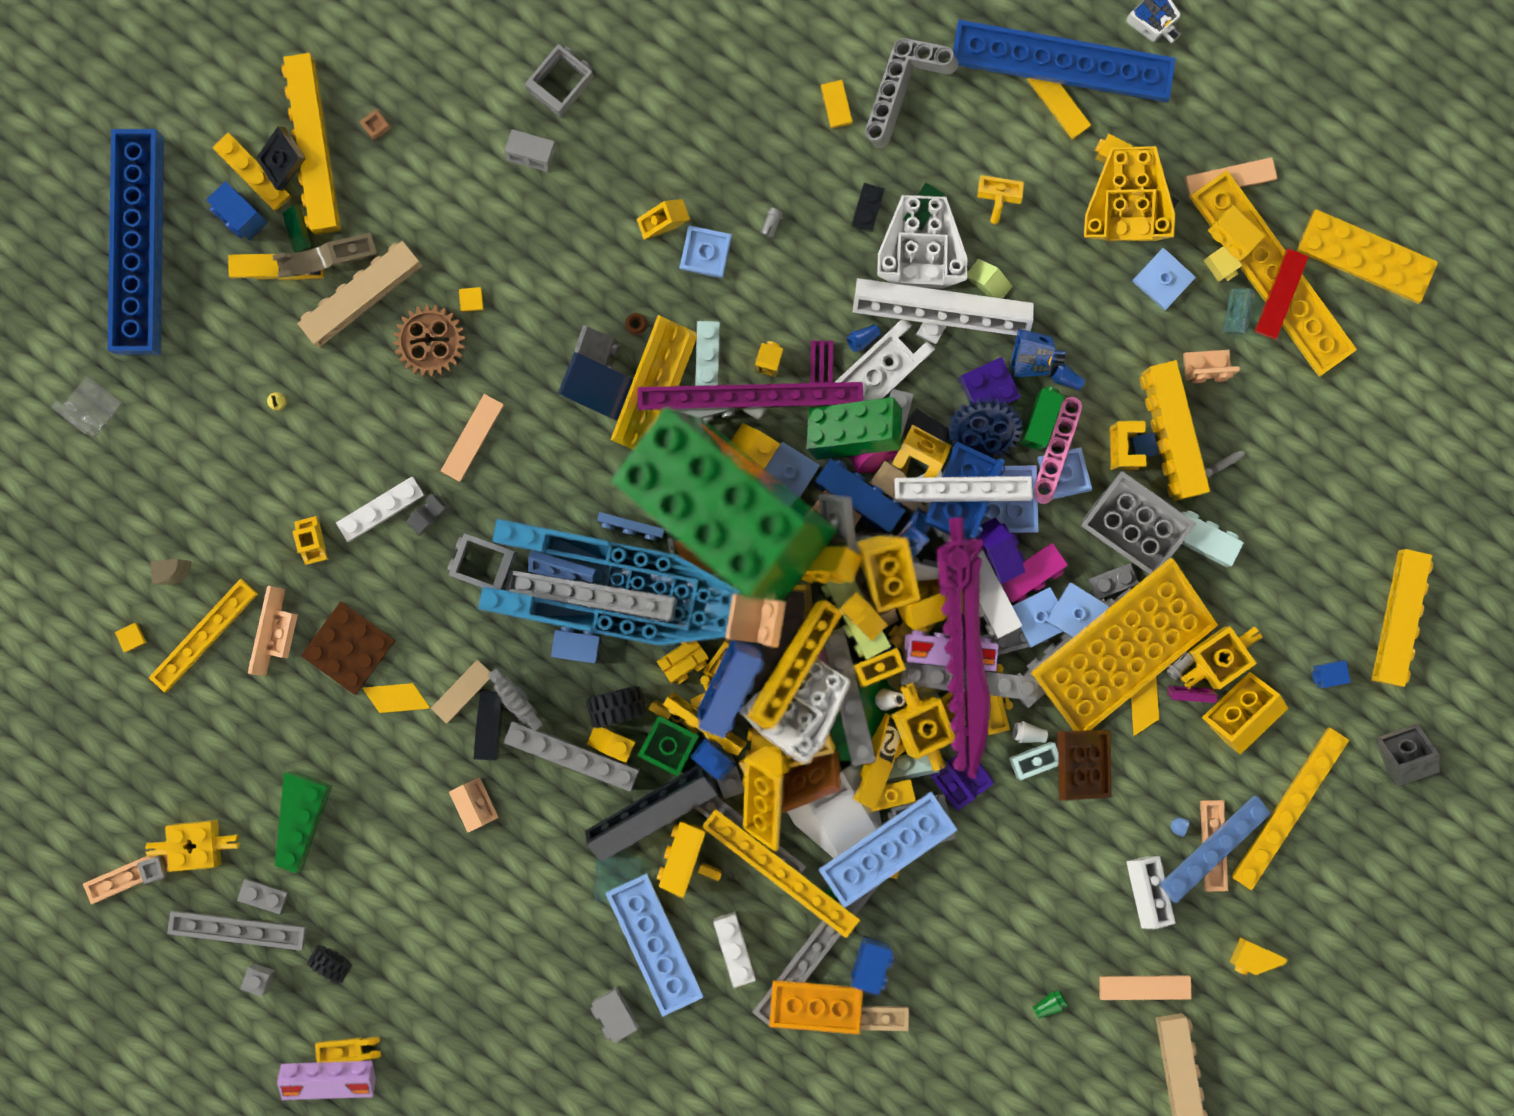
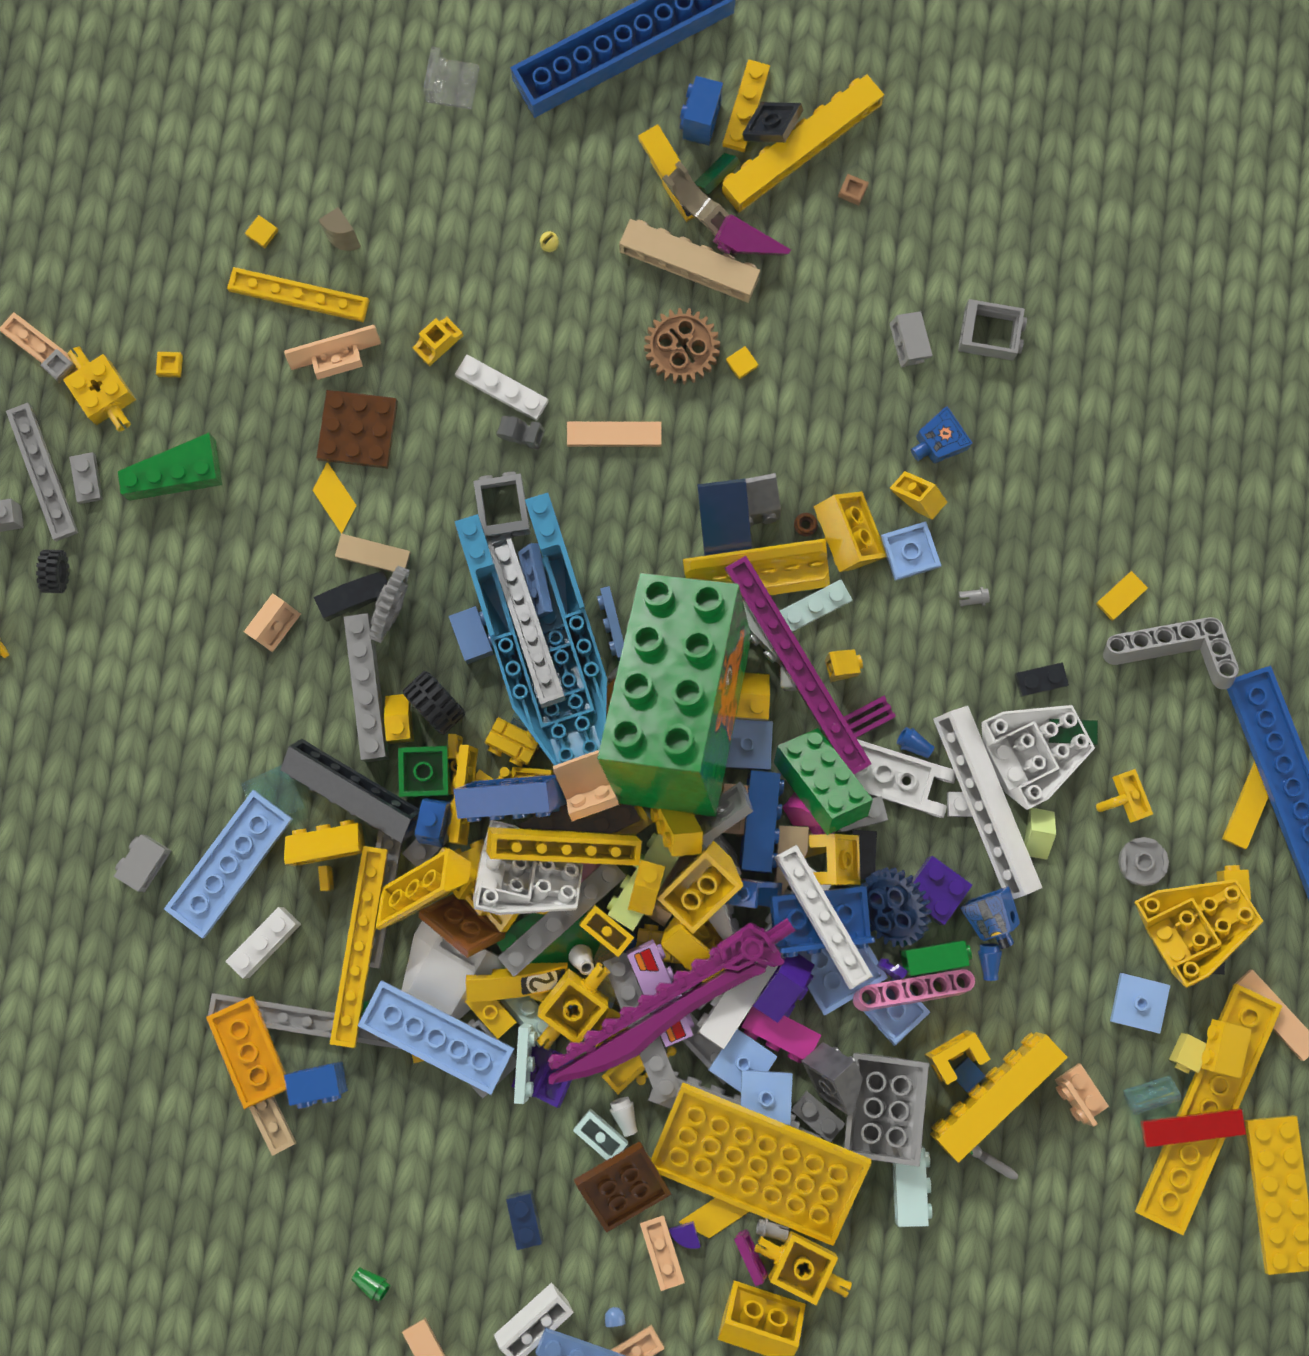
camera: 60 degrees right, 5 degrees down
(203, 775) = (169, 364): none -> yellow tile
(366, 240) = (741, 238): none -> magenta slope
(627, 173) = (941, 438): none -> torso
(662, 291) = (850, 531): none -> yellow slope
(947, 790) = (525, 1063): none -> light aqua plate
(1036, 456) = (896, 973): none -> dark purple tile
(1056, 211) = (1143, 861): none -> light grey tile
(1067, 856) = (524, 1219): none -> dark blue brick
(1091, 550) = (834, 1076): none -> flat silver slope
(1147, 735) = (686, 1235): none -> dark purple tile
(1151, 761) = (662, 1253): none -> light nougat hinge

